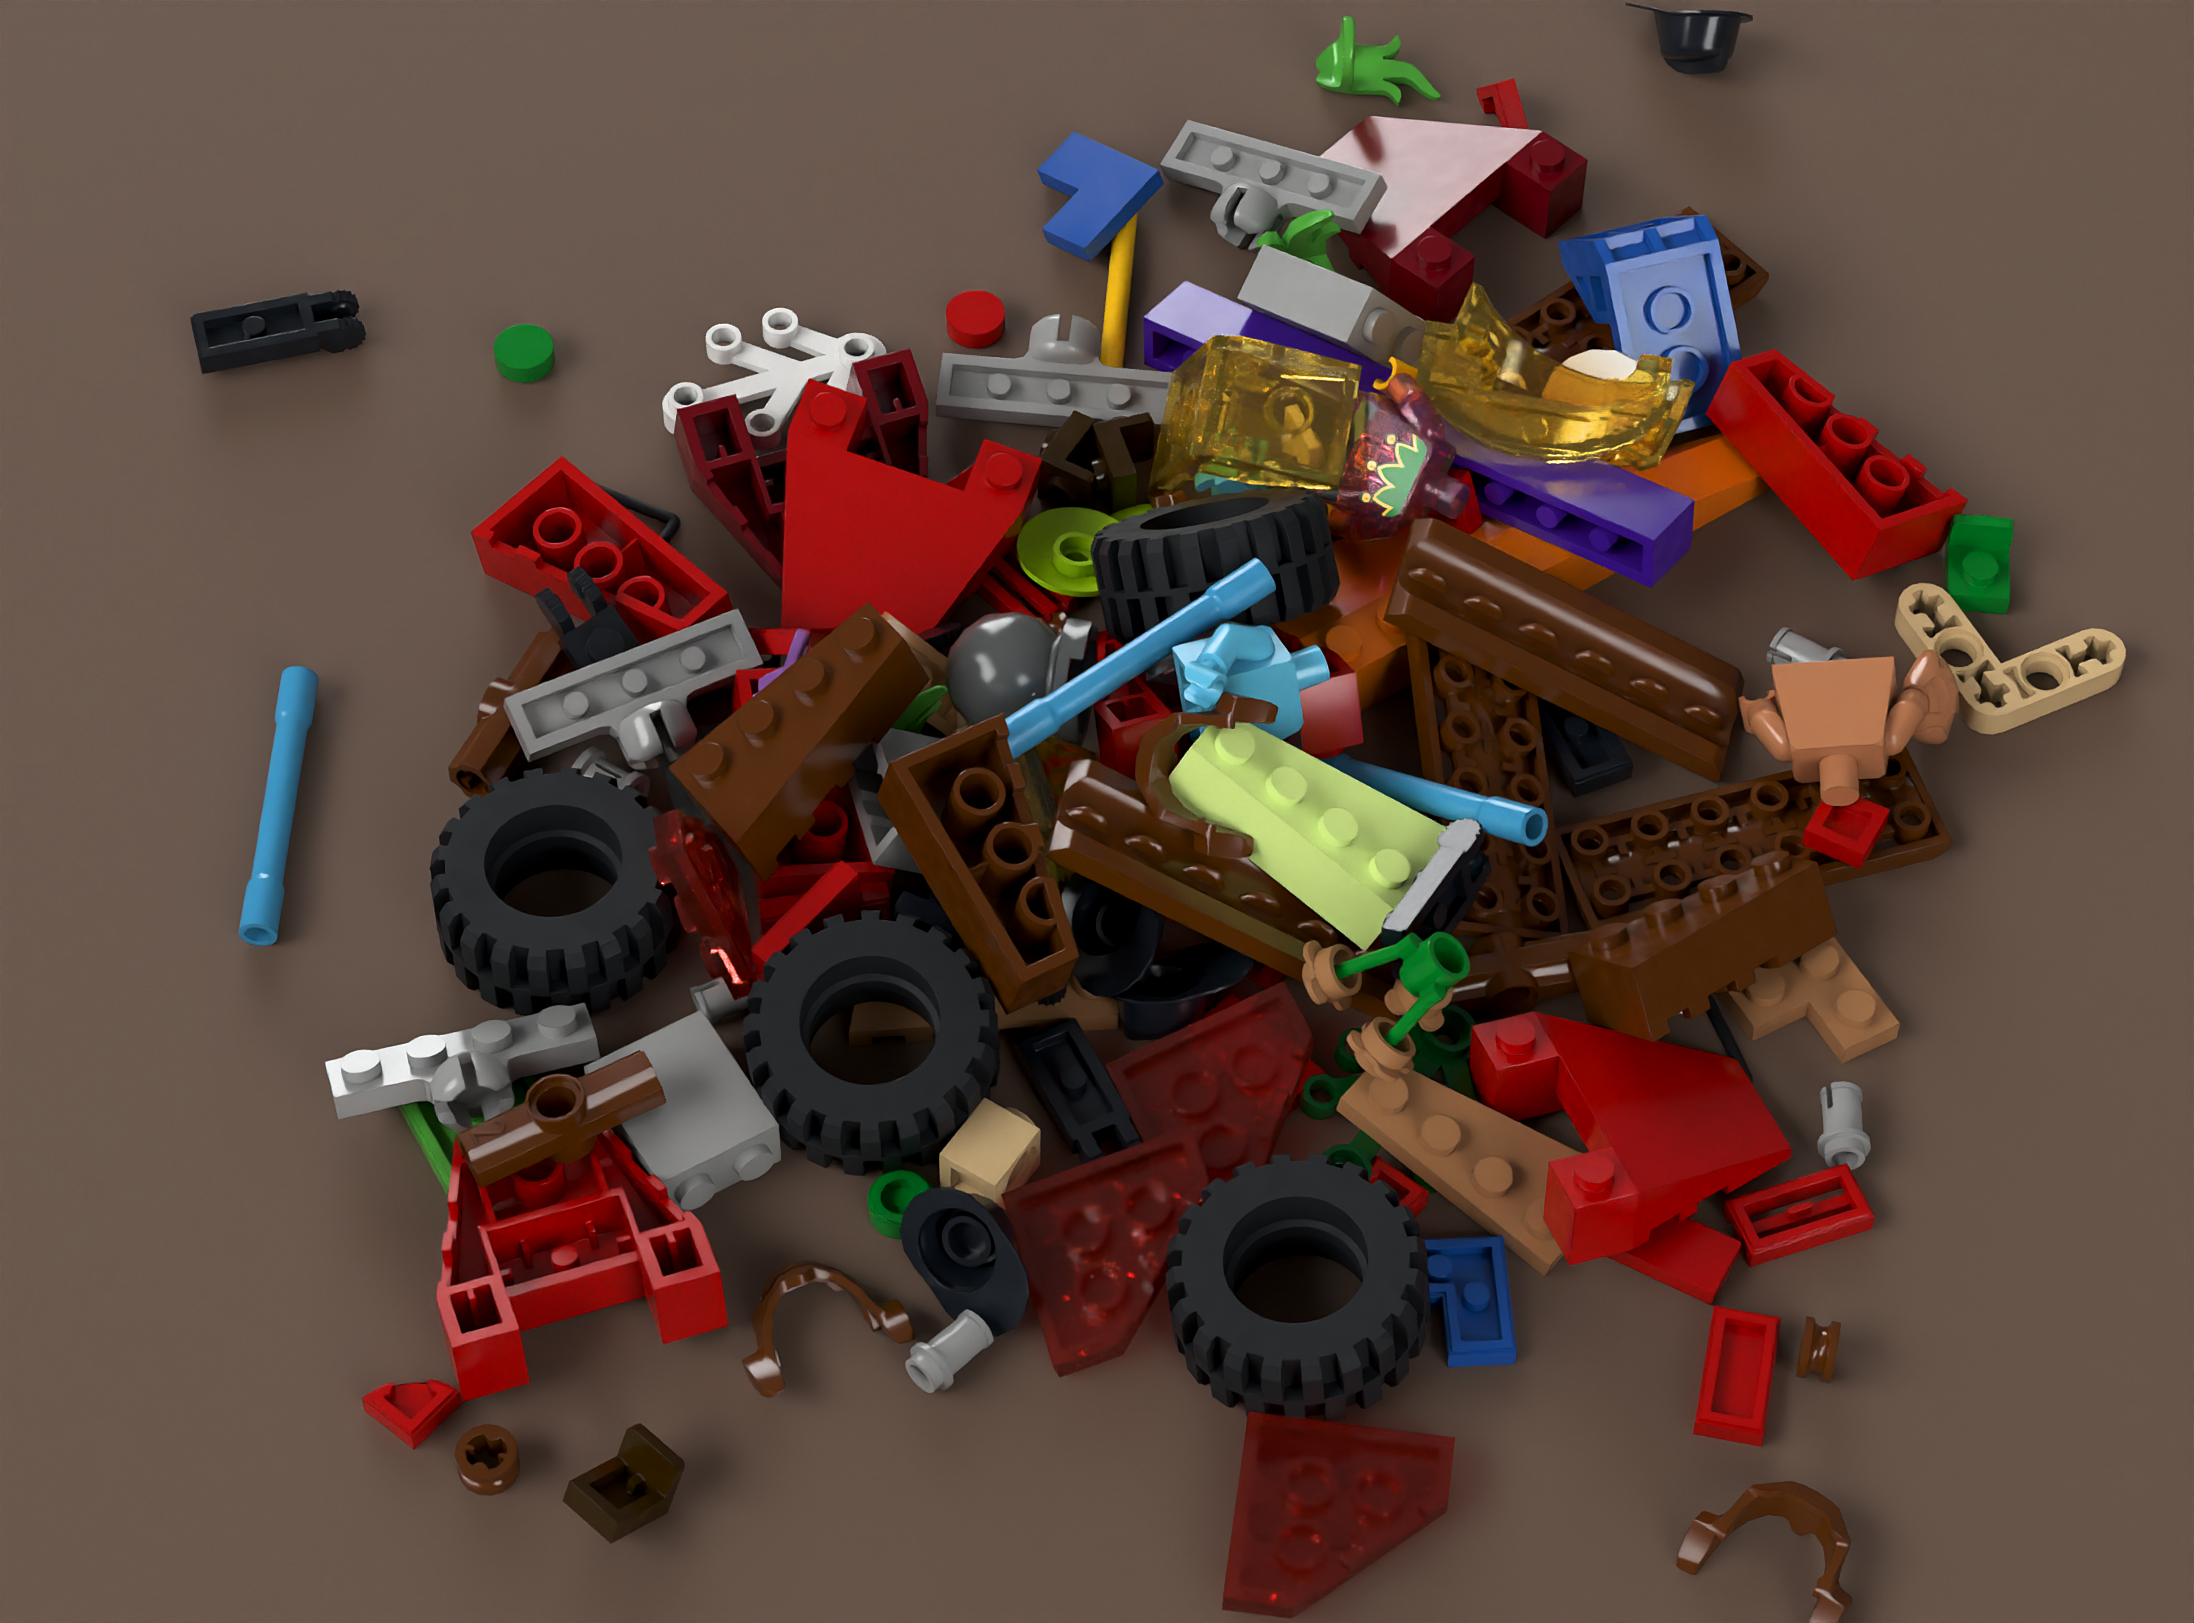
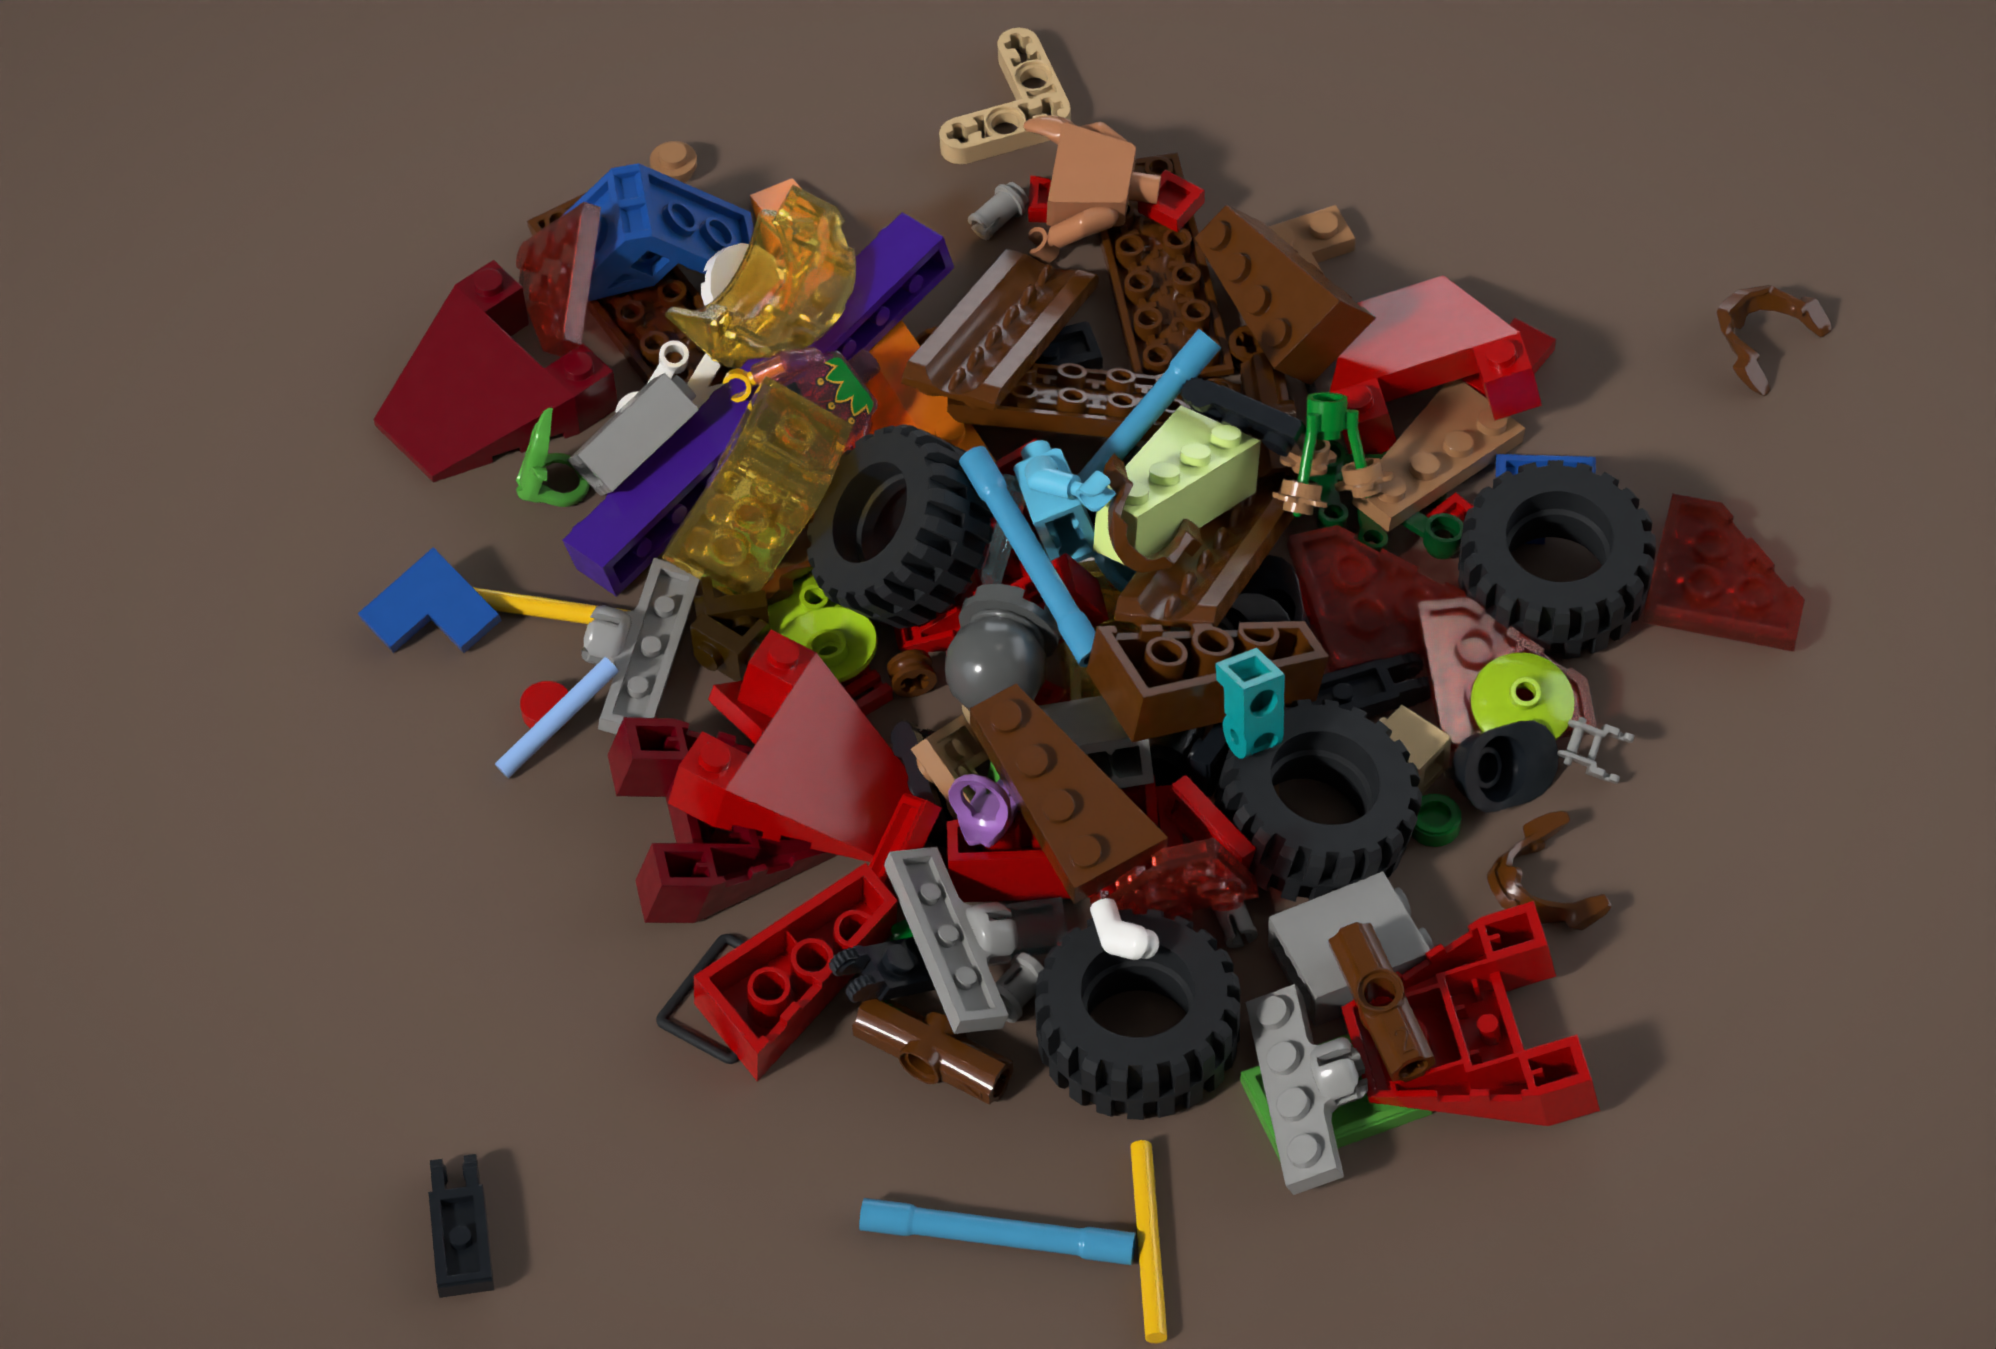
camera: 80 degrees left, 0 degrees up
(272, 951) = (1148, 1242): none -> yellow bar
(412, 1408) = (1598, 1151): red tile -> none
(499, 1444) = (1656, 1085): reddish brown bush -> none
(524, 353) = (519, 1037): green tile -> none
(617, 821) = (1122, 937): none -> white arm
(628, 1488) = (1684, 1001): dark brown bracket -> none
(777, 375) = (590, 843): white plant -> none
(914, 886) = (1252, 702): none -> teal leg
(938, 1360) = (1583, 802): light grey pin -> none
(946, 319) = (556, 717): none -> light blue bar
(996, 1367) = (1570, 754): none -> light grey piece
(1089, 1288) = (1495, 697): none -> lime dish
(1268, 183) = (458, 479): light grey plate -> none
(1368, 68) = (322, 414): bright green piece -> none
(1505, 102) = (391, 322): red tile -> none
(1589, 208) = (557, 277): none -> clear red plate
(1697, 38) = (347, 191): black piece -> none
(1737, 1376) = (1617, 340): red tile -> none
(1802, 1224) = (1501, 274): red tile -> none
(1818, 333) = (674, 160): none -> medium nougat plate
(1818, 1349) = (1607, 286): reddish brown bush -> none
(1830, 468) = (839, 157): red wedge -> none
(1843, 1126) = (1423, 249): light grey pin -> none
(1979, 562) = (921, 103): green bracket -> none

